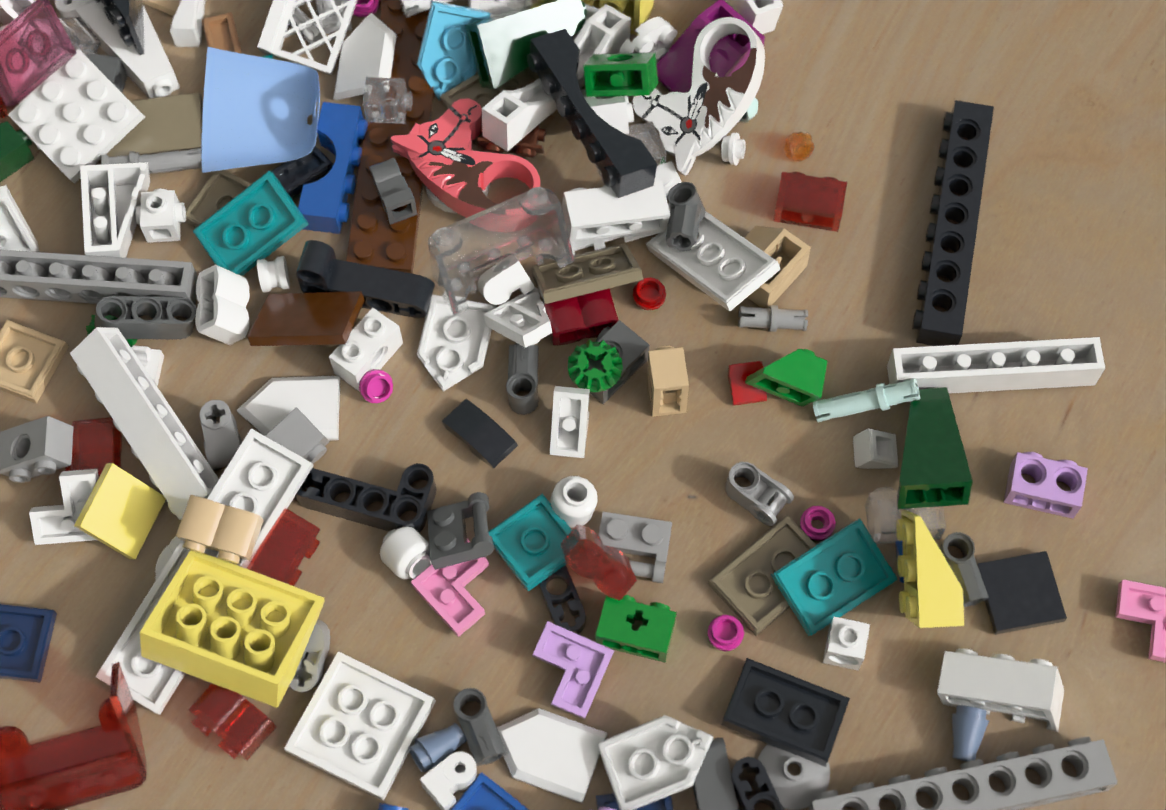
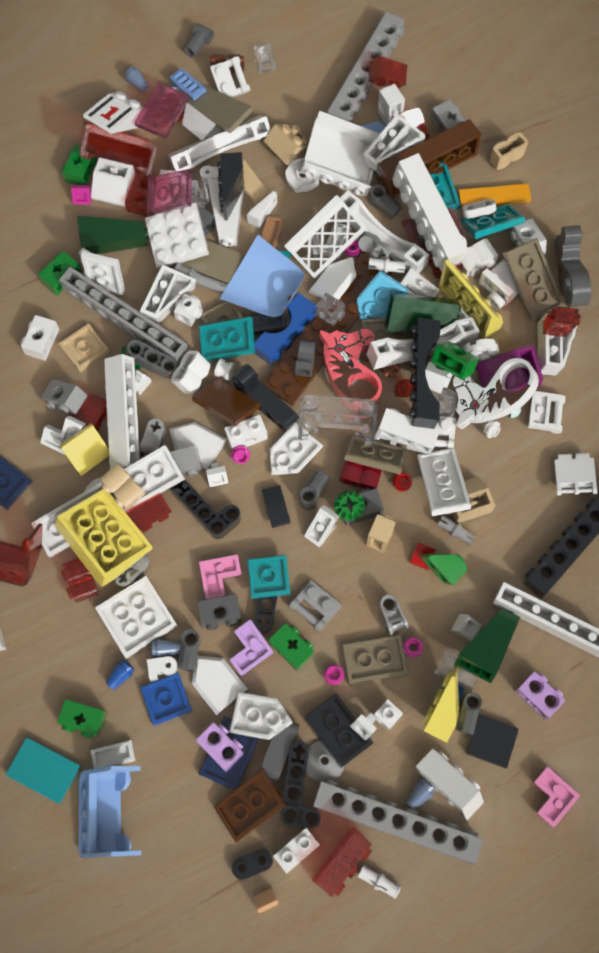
camera: 30 degrees right, 5 degrees up
(358, 436) = (217, 475): none -> white tile
(405, 552) = (205, 546): white head -> none
(449, 536) = (230, 549): dark grey plate -> none
(498, 620) = (208, 608): none -> dark grey brick
(503, 279) = (333, 435): white leg -> none
(521, 319) = (329, 460): white wing -> none
(566, 159) = (403, 388): none -> clear red tile
(574, 500) = (299, 567): white head -> none
(602, 563) = (289, 603): clear red brick -> none
(685, 216) = (441, 453): dark grey piece -> none
(786, 89) = (540, 411): none -> white plate
(798, 146) = (527, 446): clear orange plate -> none
(810, 201) = (514, 479): clear red brick -> none
(823, 678) = (364, 726): none -> white tile
(834, 577) = (403, 679): teal tile -> none
(879, 397) = (481, 602): light aqua pin -> none
(892, 147) = (575, 474): none -> white plate

